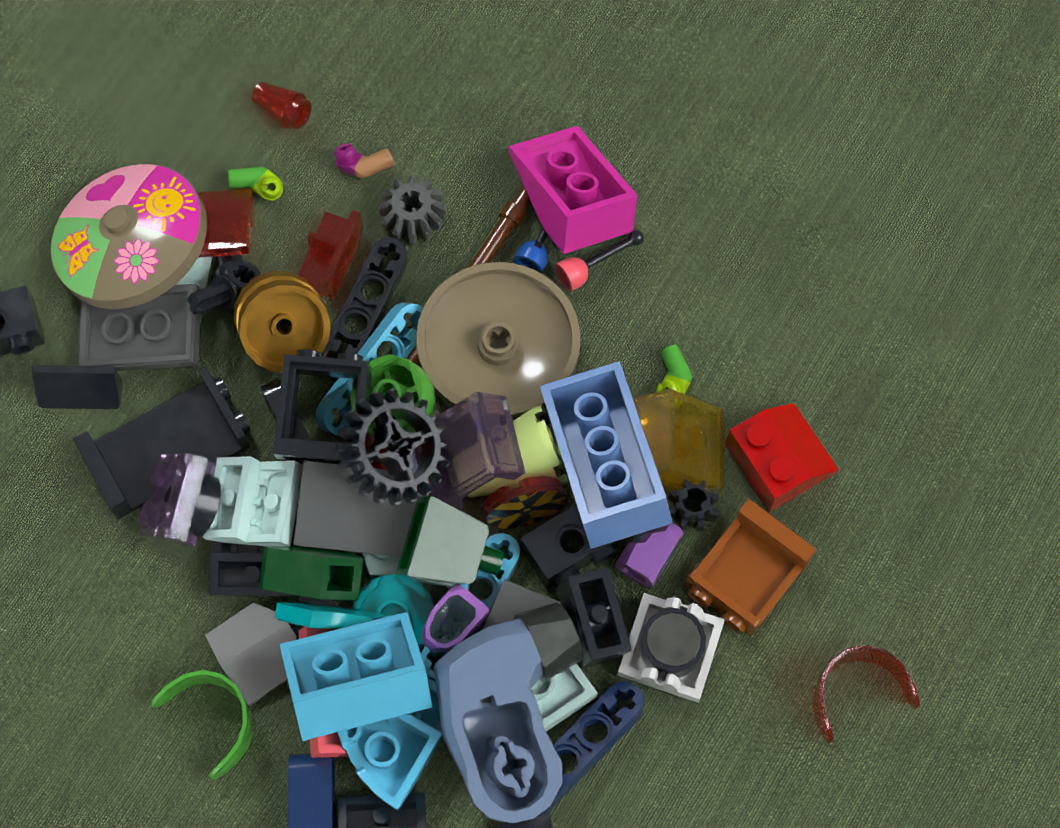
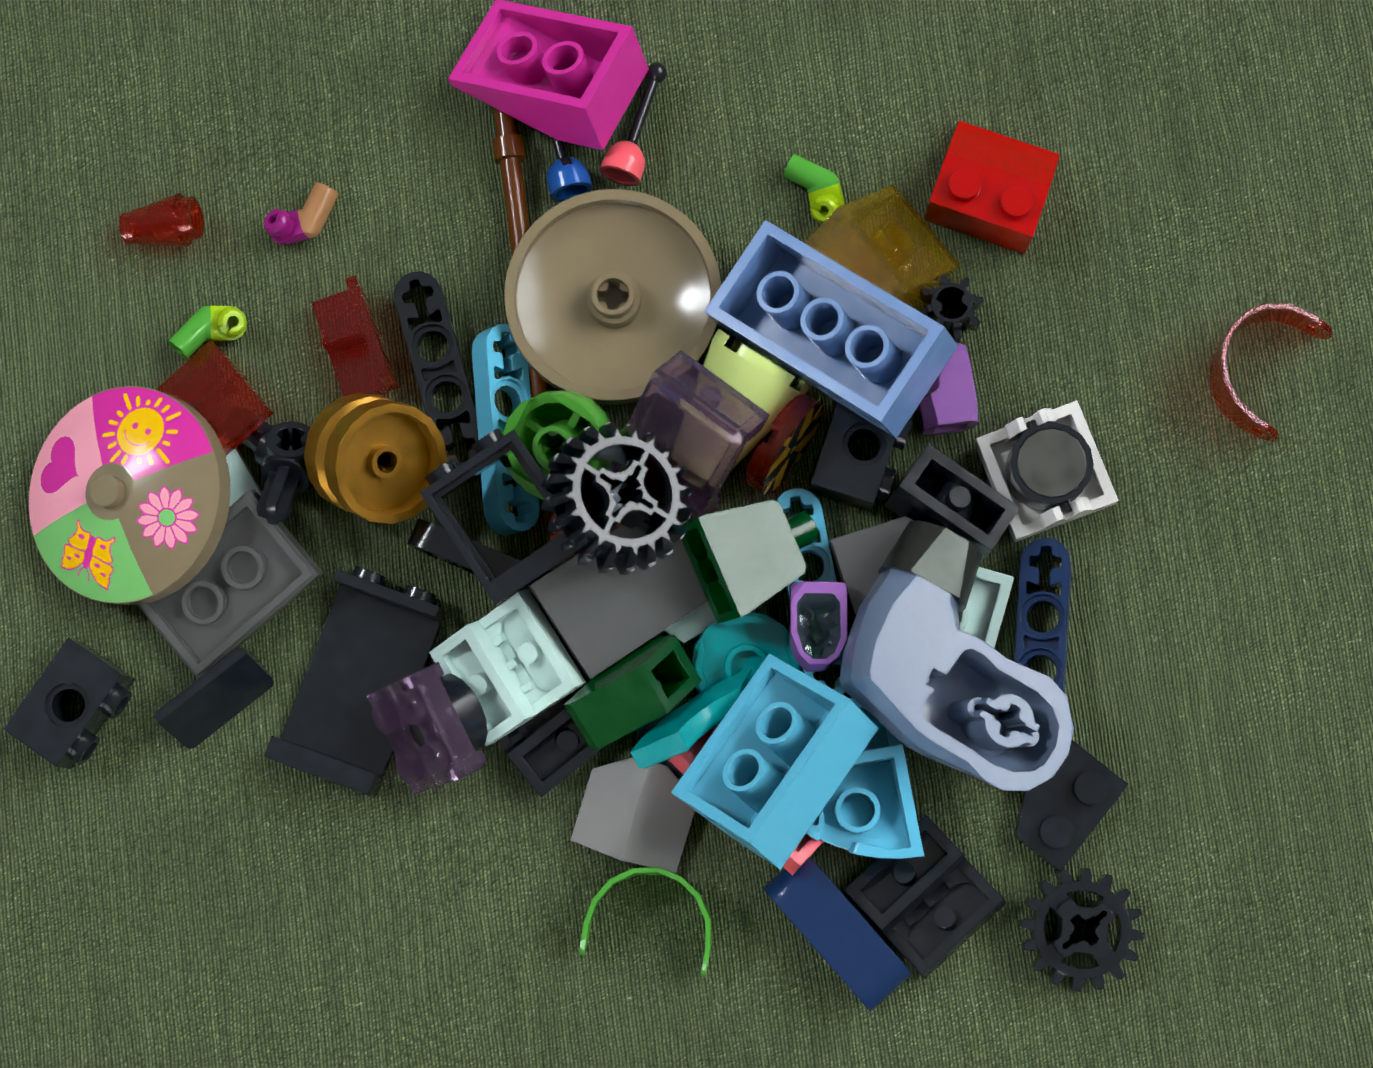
camera: 30 degrees left, 10 degrees up
(409, 196) = (382, 220): dark grey gear -> none
(749, 569) = (1056, 328): dark orange panel -> none

